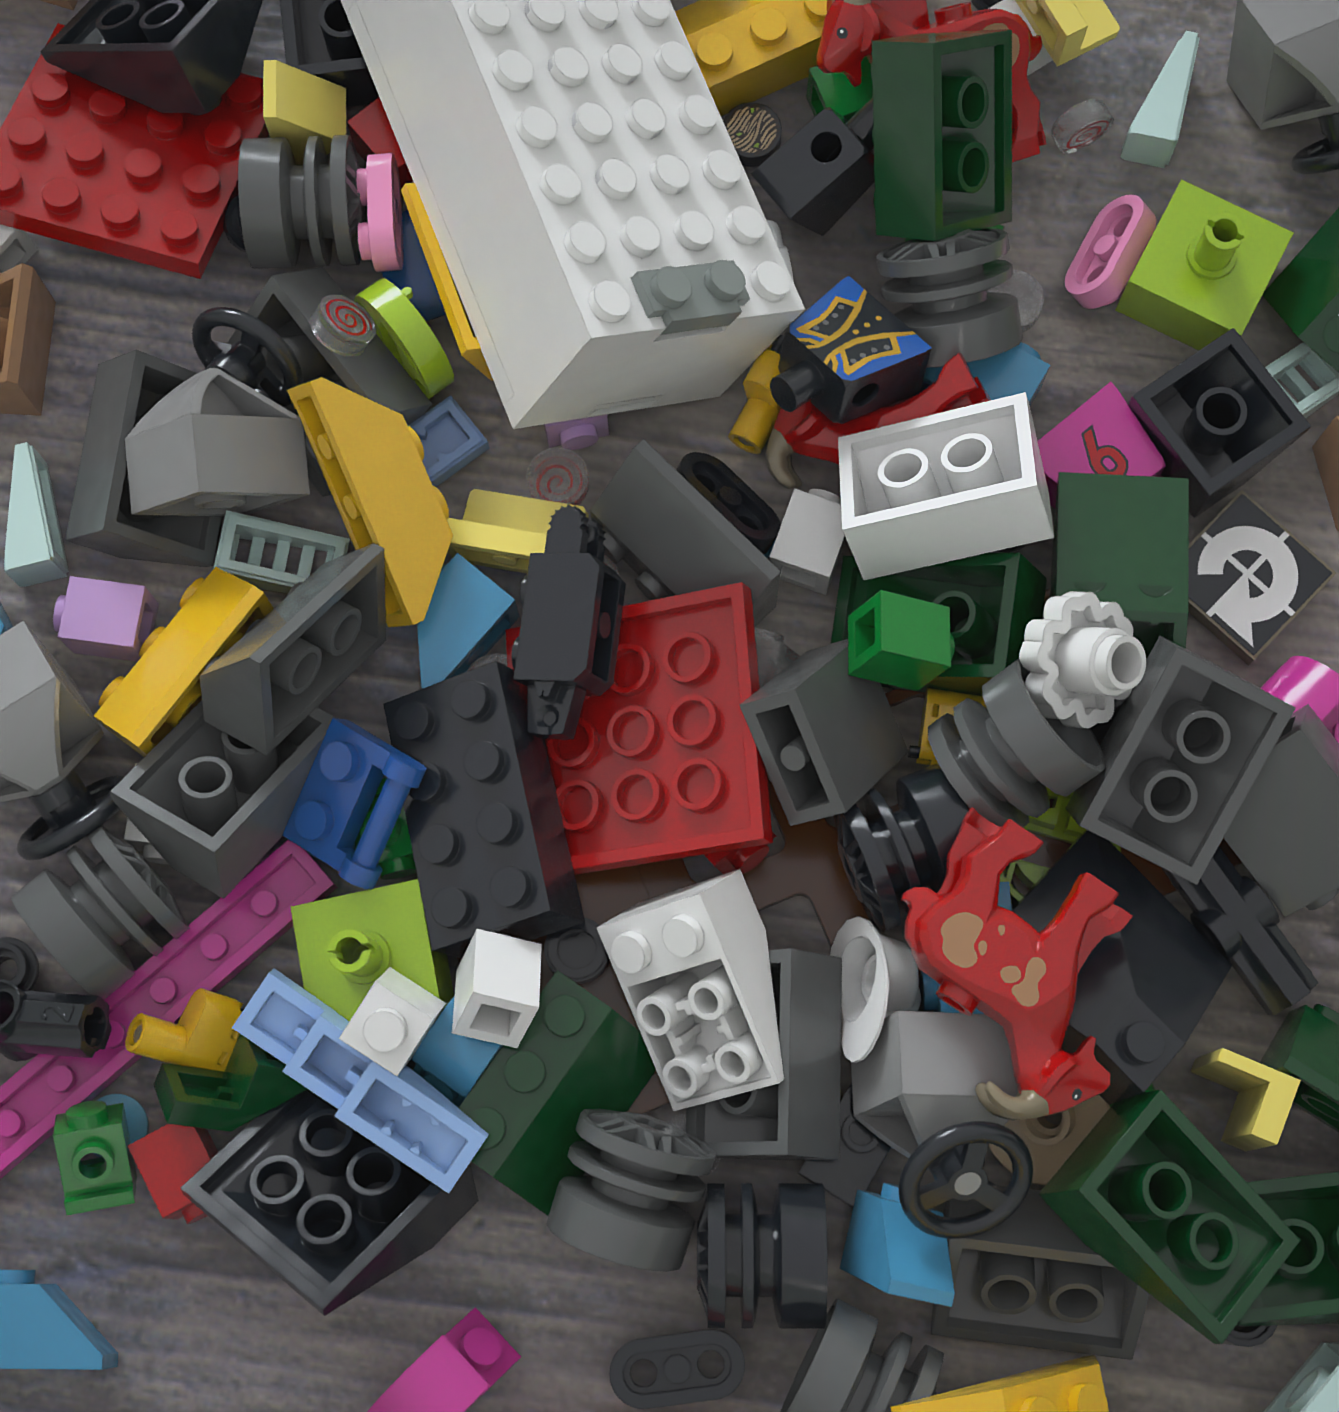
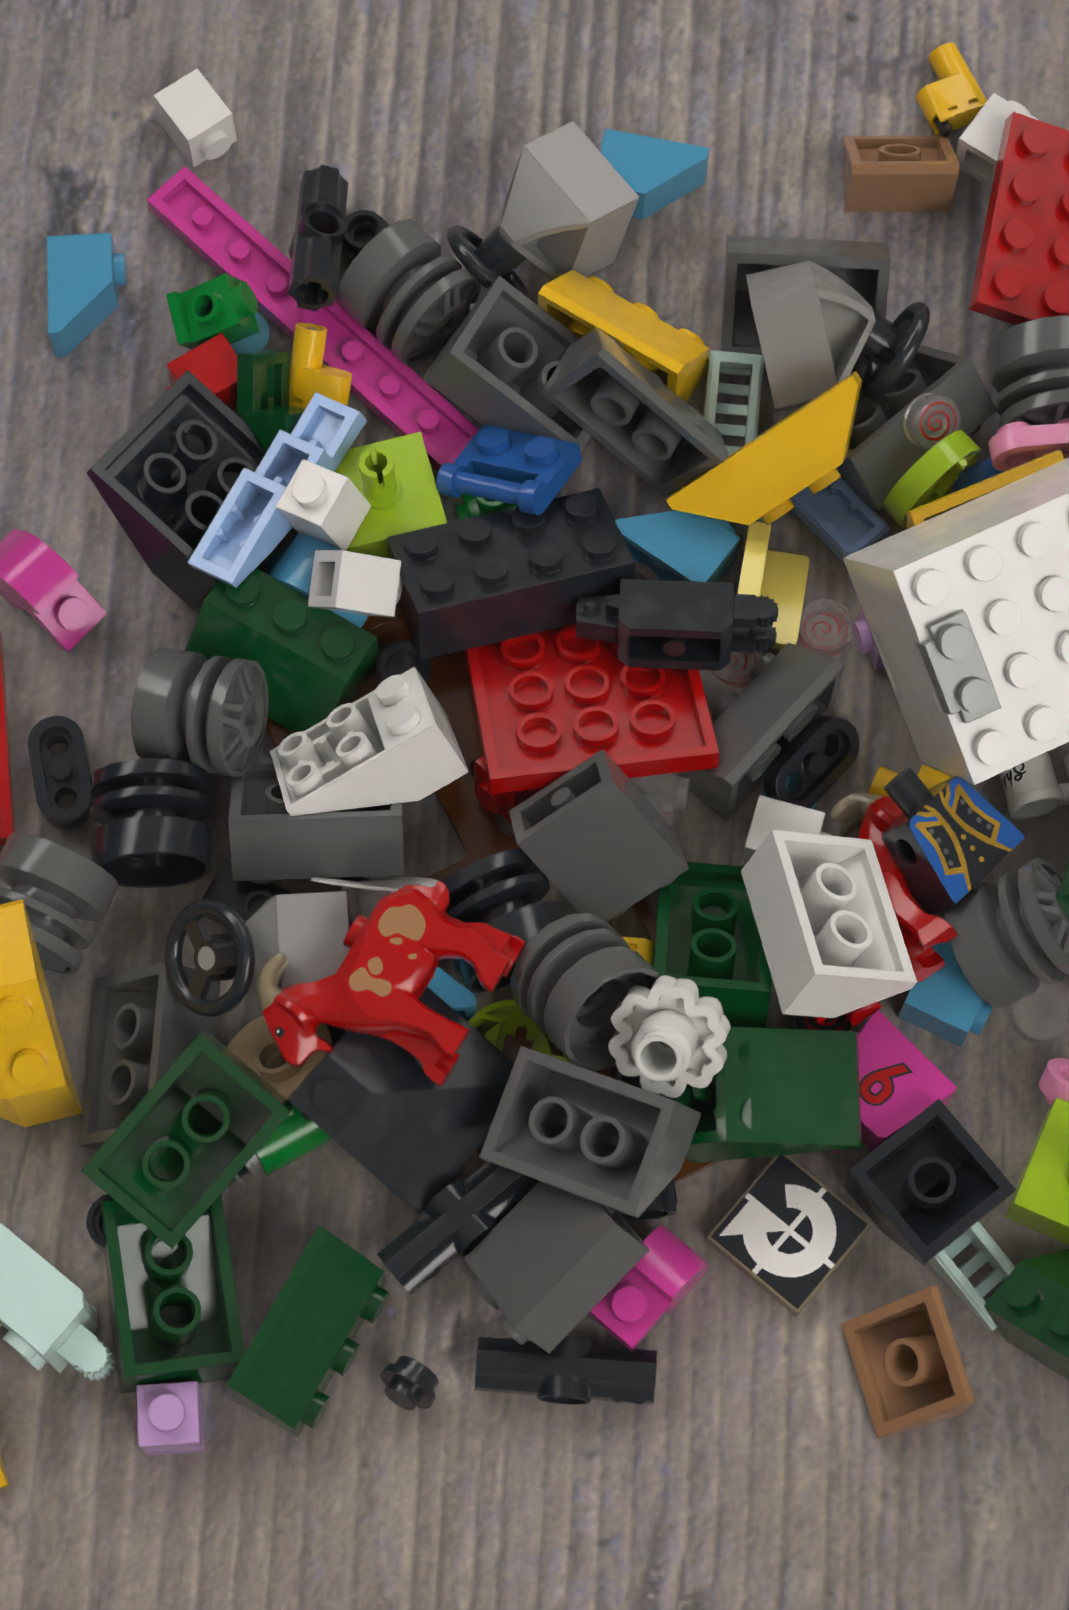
camera: 85 degrees right, 5 degrees down
(33, 530) = (745, 210): light aqua slope -> none
(105, 618) = (663, 274): lavender brick -> none
(894, 1253) = (142, 928): dark azure slope -> none
(899, 640) = (678, 892): green brick -> none
(1261, 1100) = (292, 1230): light yellow panel -> none

